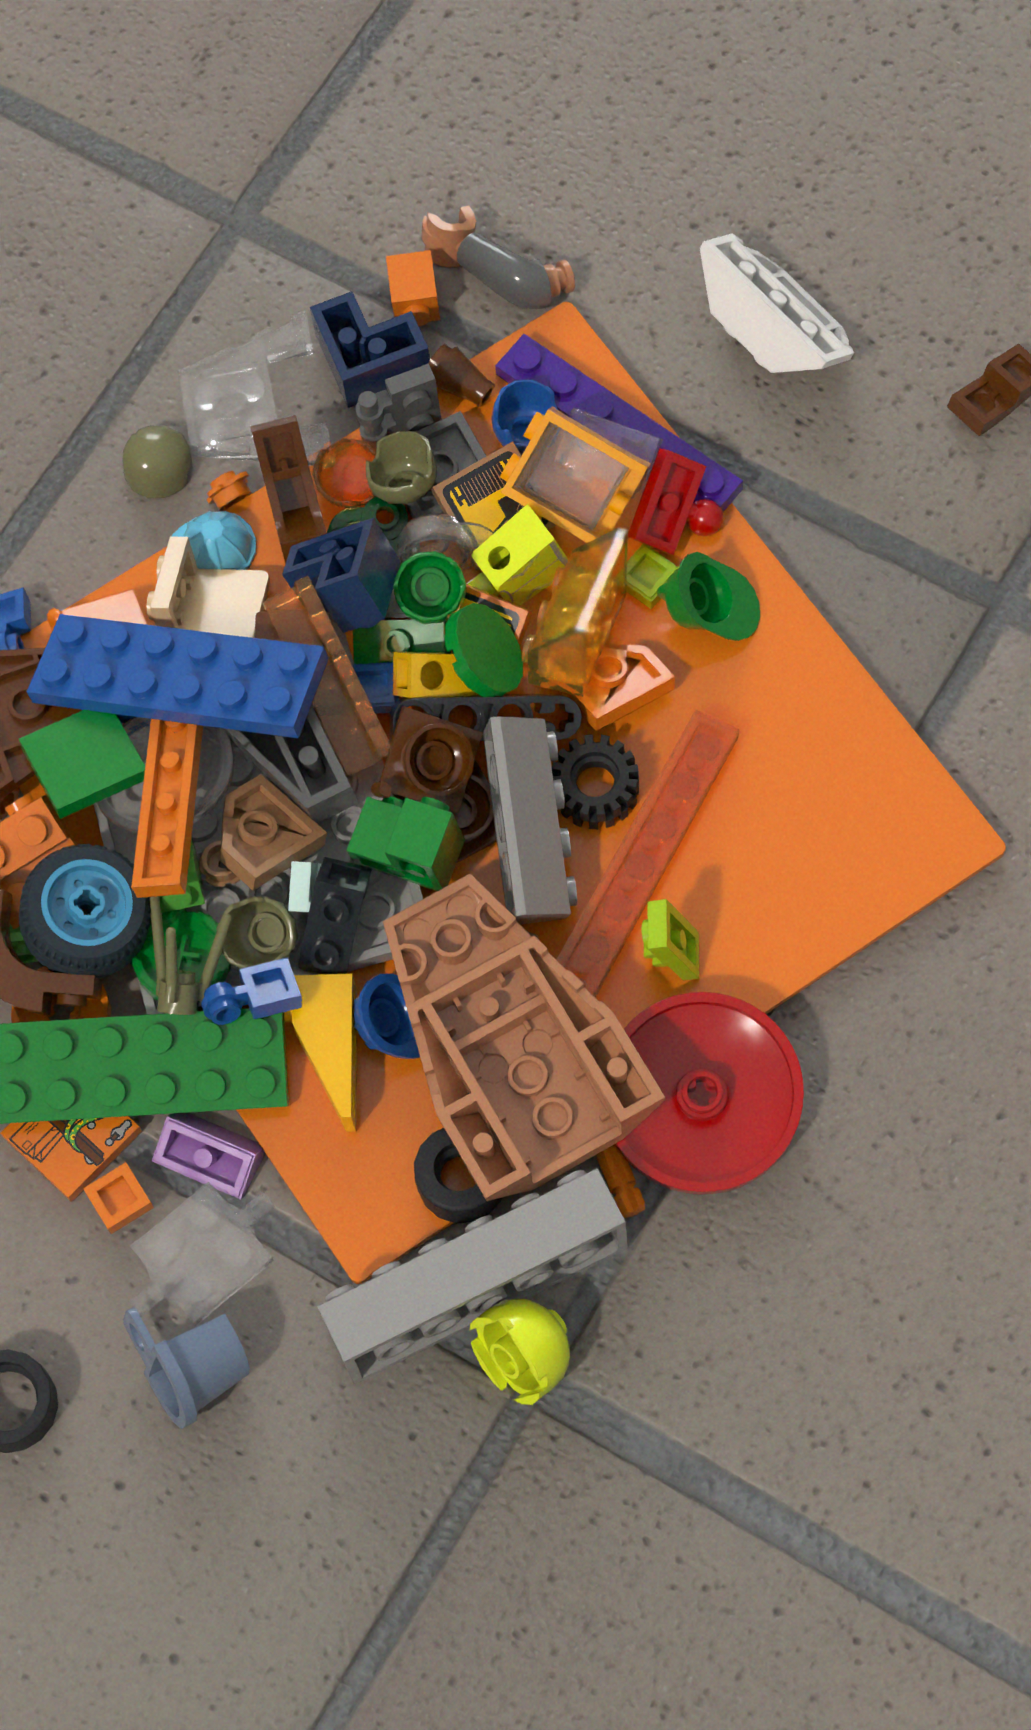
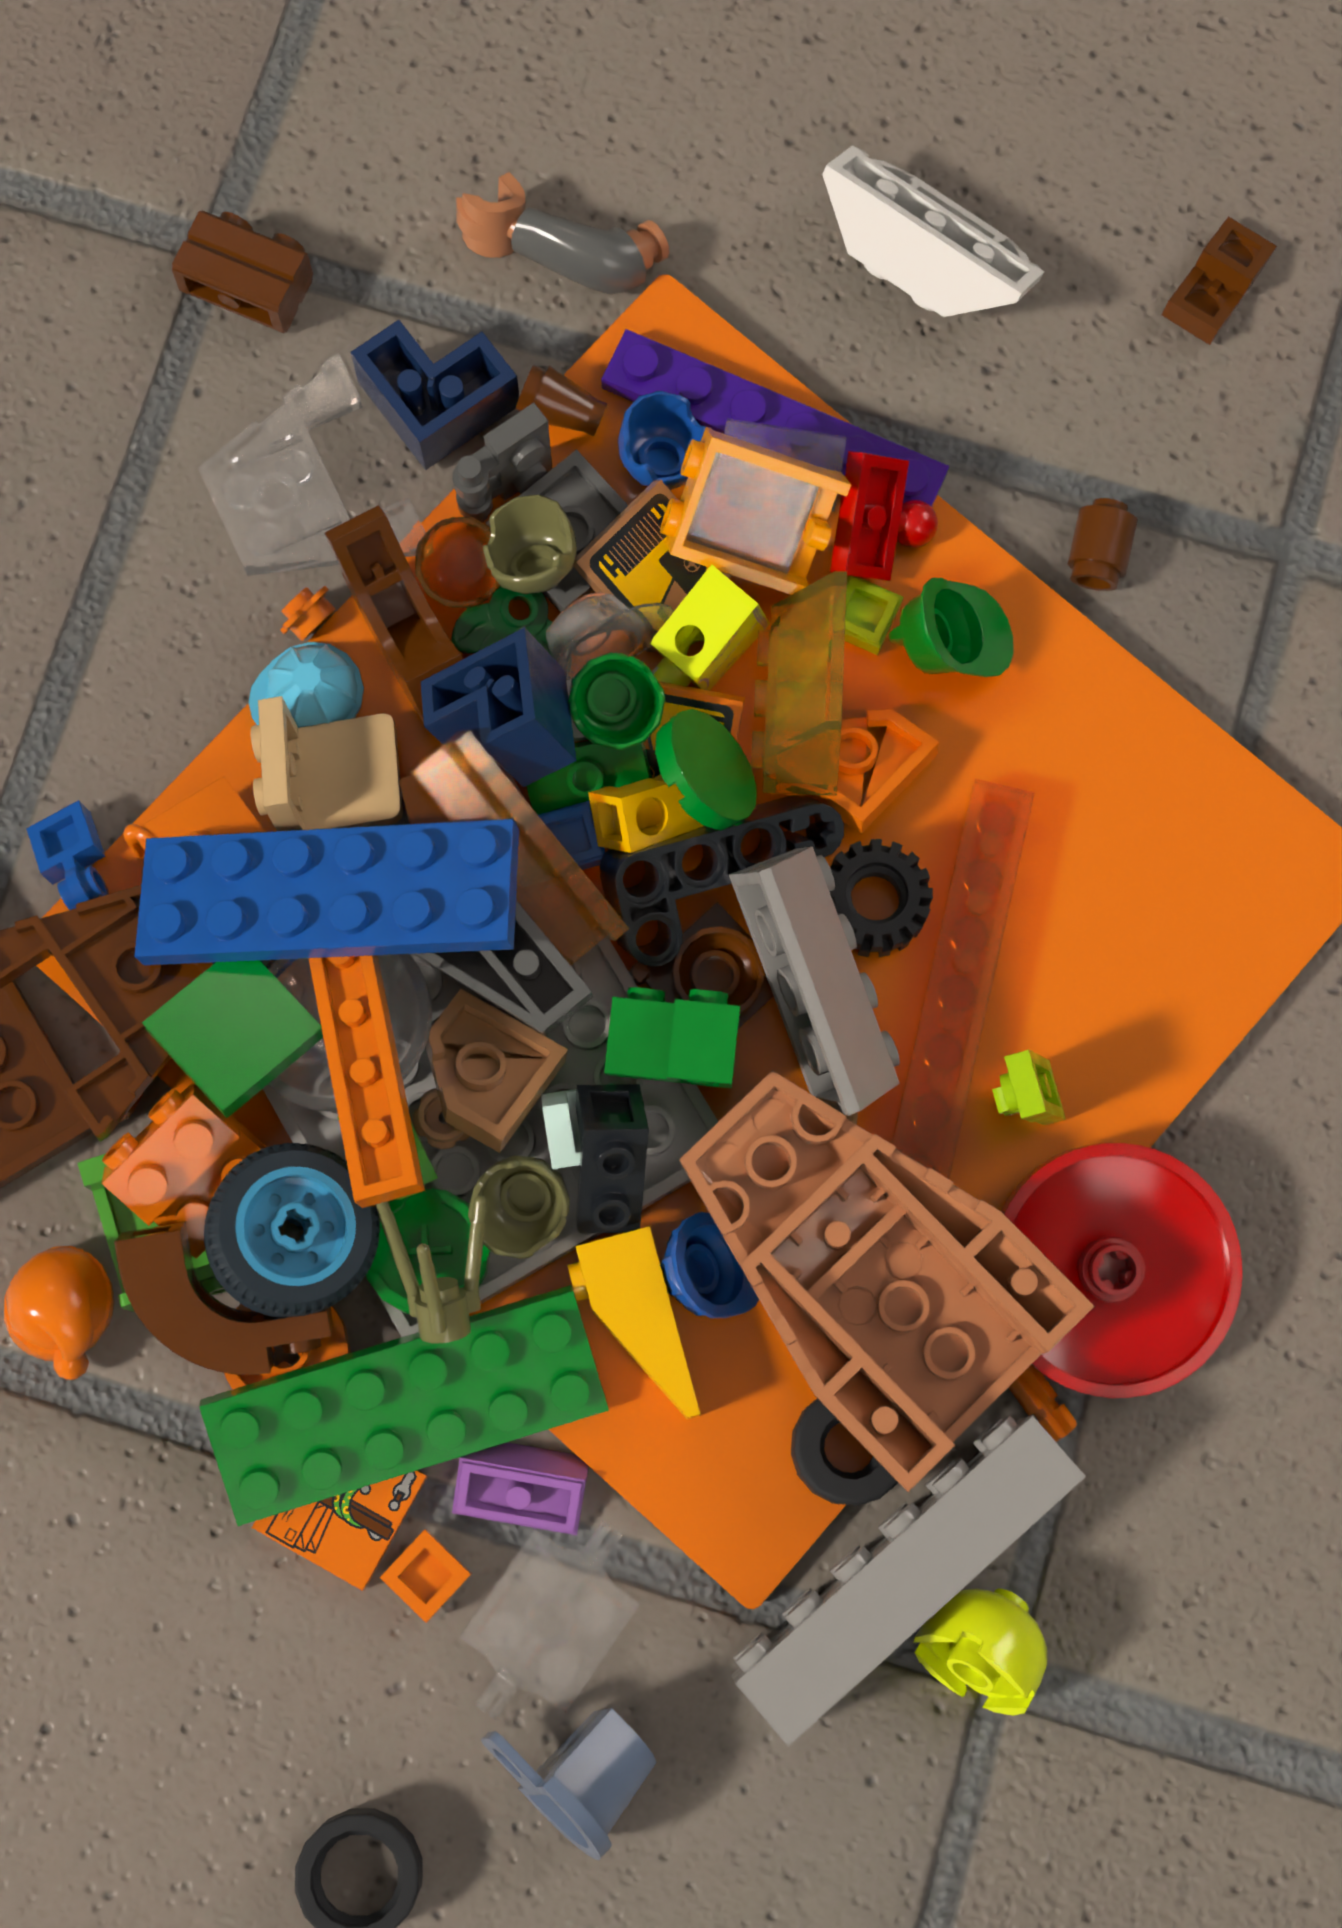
camera: 25 degrees left, 10 degrees up
(156, 461) = (202, 593): olive hair -> none
(252, 238) = (243, 269): none -> reddish brown brick
(264, 987) = (550, 1276): blue plate -> none
(413, 286) = (467, 295): orange brick -> none
(428, 759) = (674, 929): reddish brown hat -> none
(848, 564) = (1102, 544): none -> reddish brown brick

